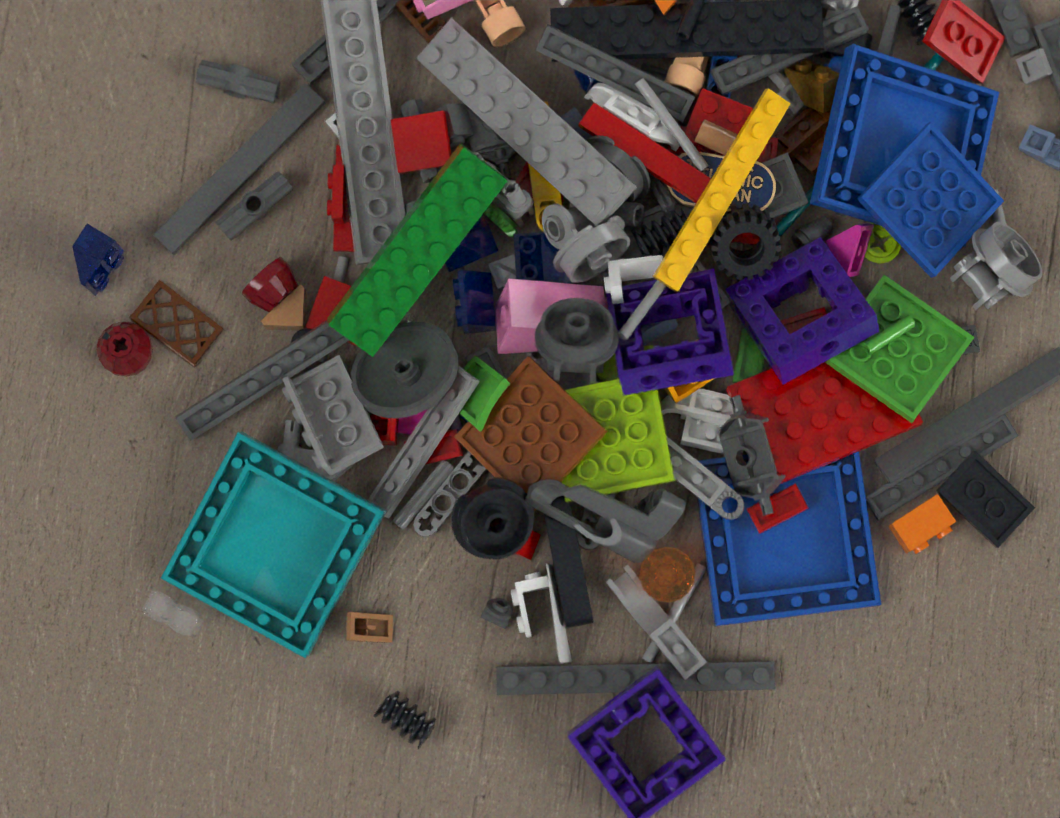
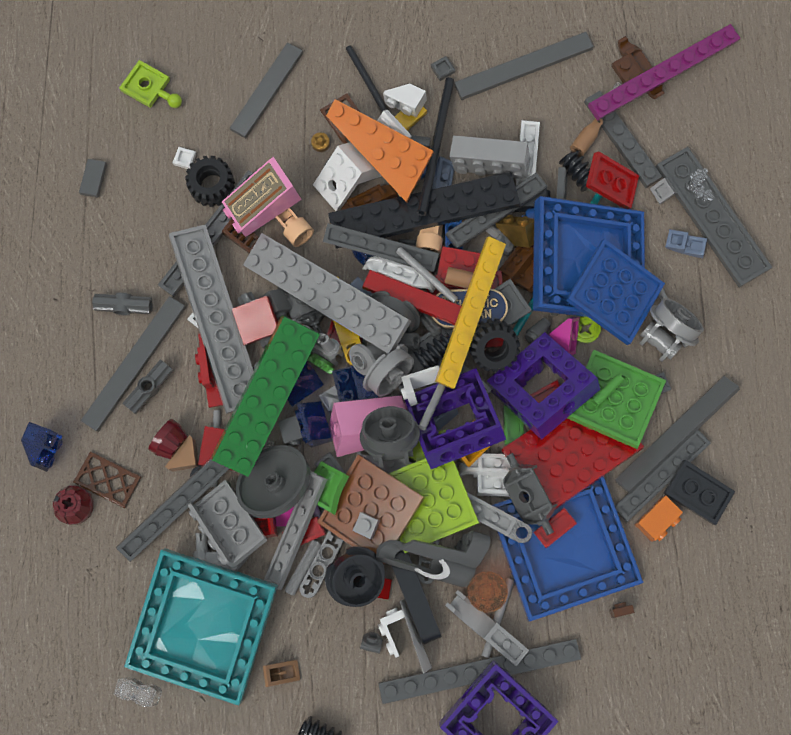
camera: 10 degrees left, 5 degrees down
(441, 306) = (291, 431): none -> dark grey brick
(521, 453) = (366, 525): none -> light grey plate
(843, 634) = (621, 609): none -> reddish brown plate

